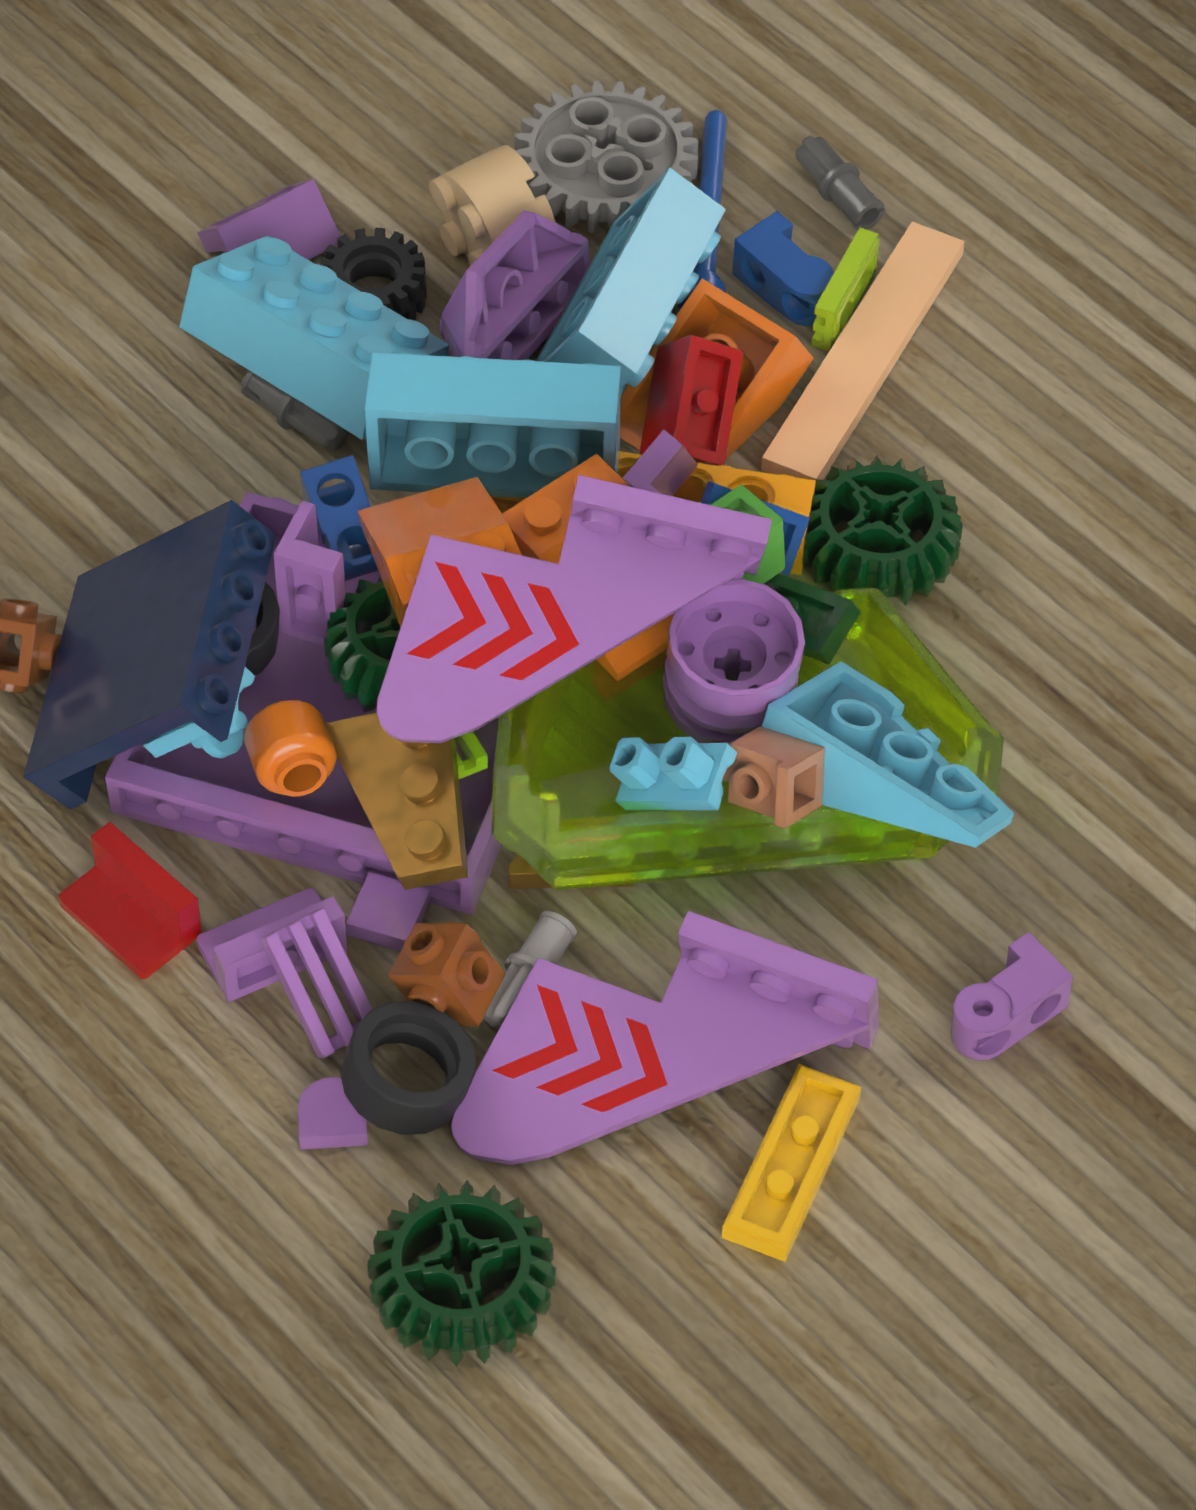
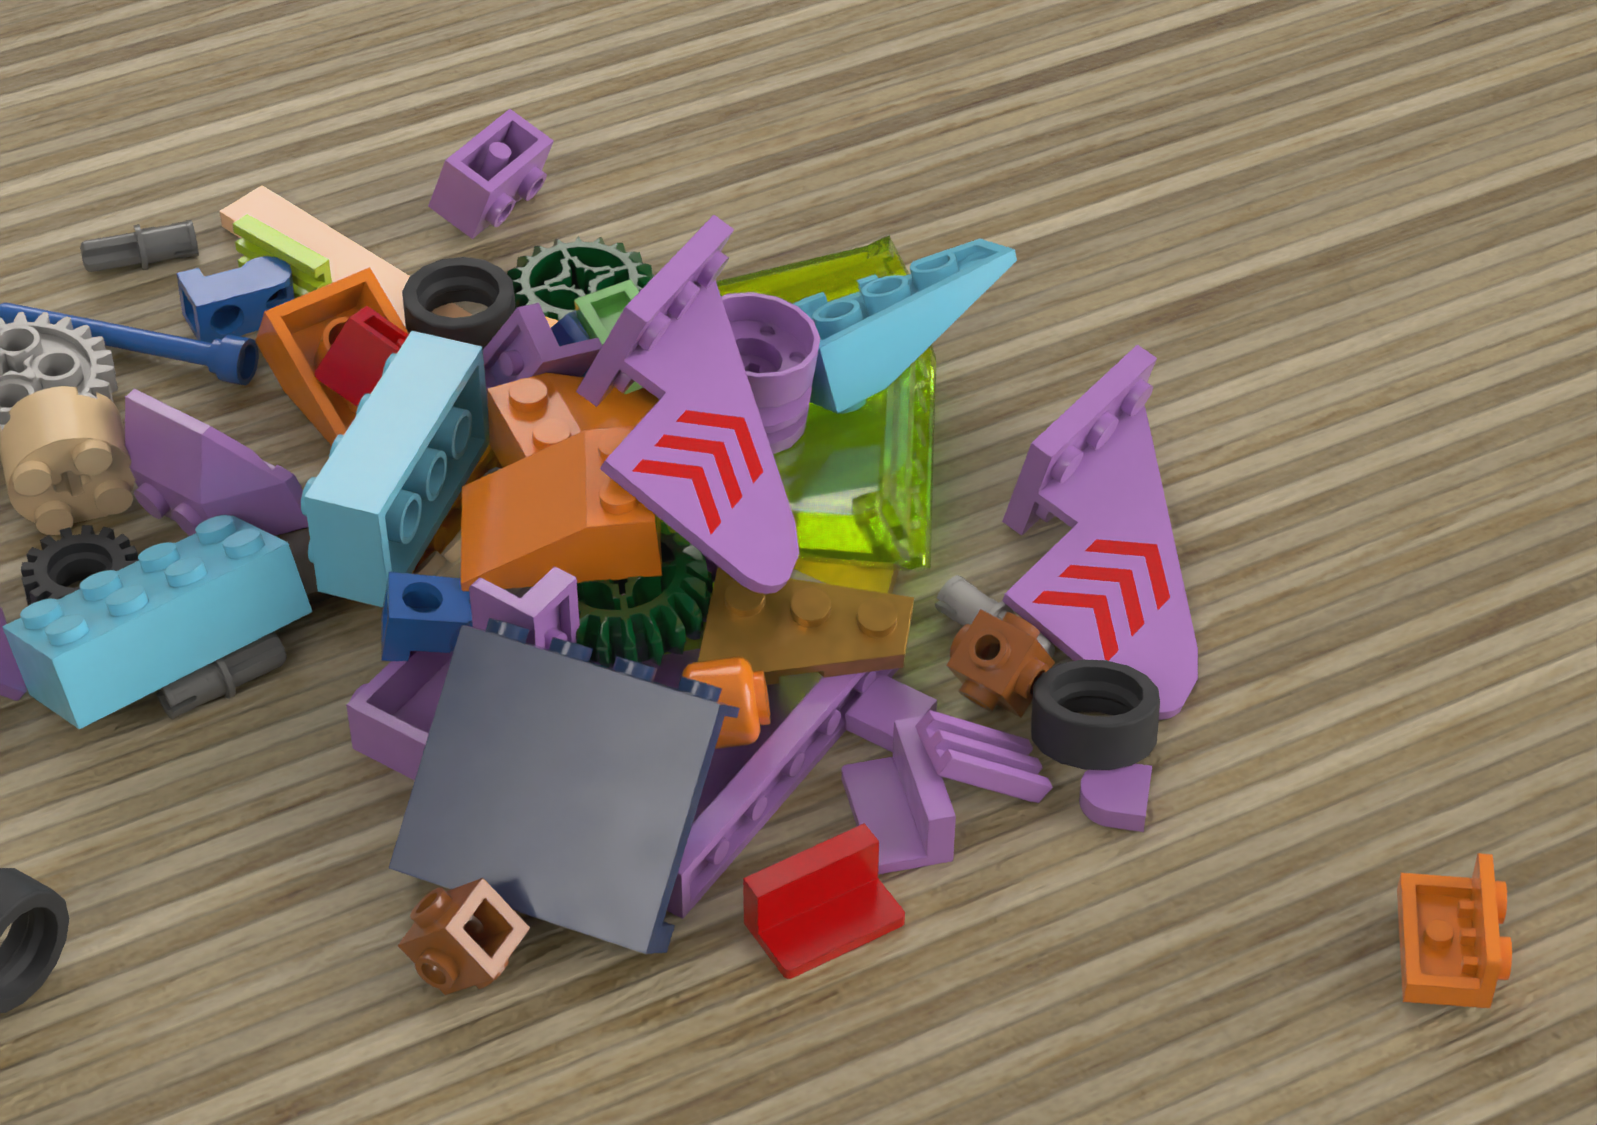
camera: 75 degrees left, 10 degrees down
(199, 1415) = (1453, 937): none -> orange bracket
(490, 1244) = (1325, 722): dark green gear -> none
(637, 280) = (239, 373): medium azure brick -> none
(670, 774) = (858, 439): medium azure hips -> none
(776, 775) = (879, 377): nougat brick -> none
(791, 1163) = (1242, 501): yellow tile -> none
(806, 400) = (459, 281): none -> black tyre
(1013, 1003) = (1108, 320): medium lavender leg -> none
(1031, 405) = (491, 174): none -> medium lavender brick

